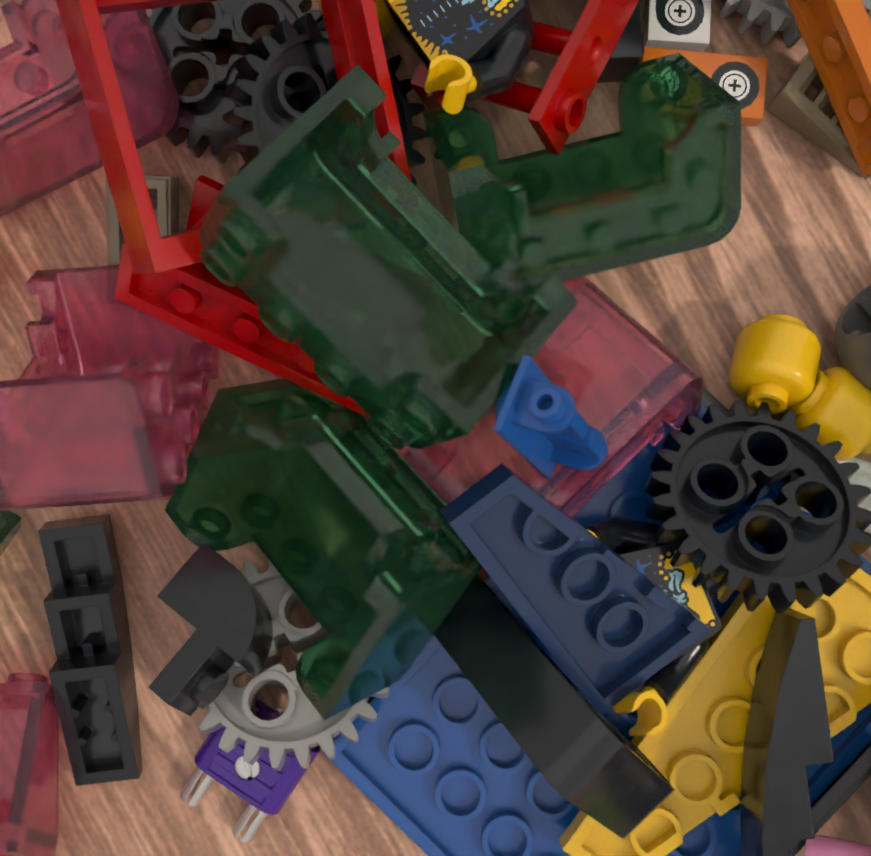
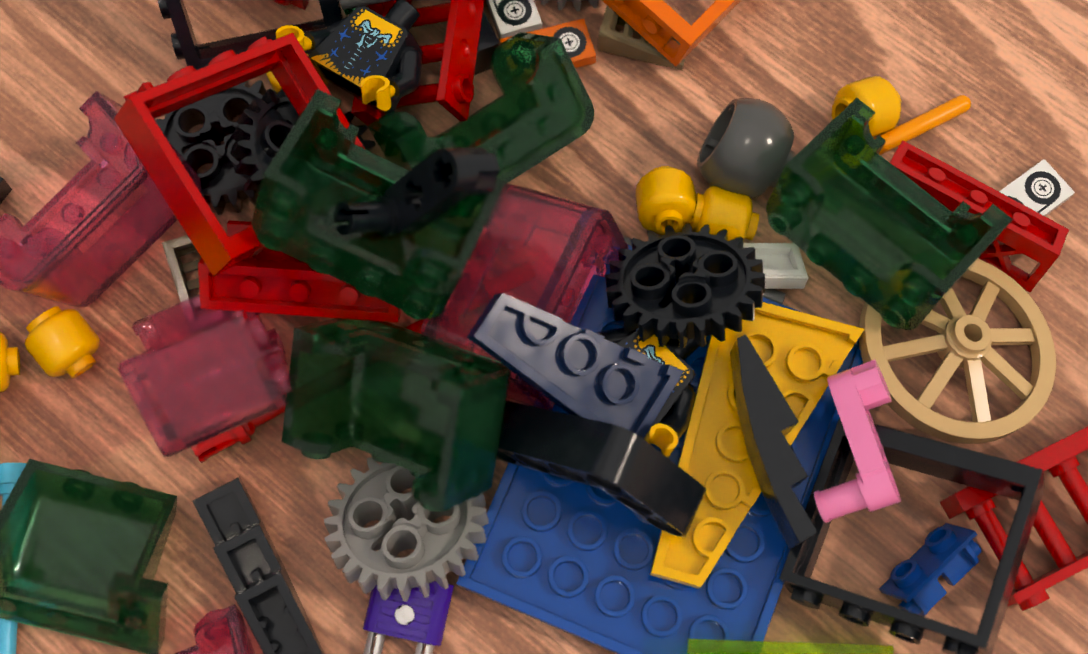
camera: 20 degrees left, 15 degrees down
(230, 627) = (349, 501): black brick -> none
(458, 280) = (422, 193): none -> black beam
(544, 424) = (515, 260): blue hinge -> none

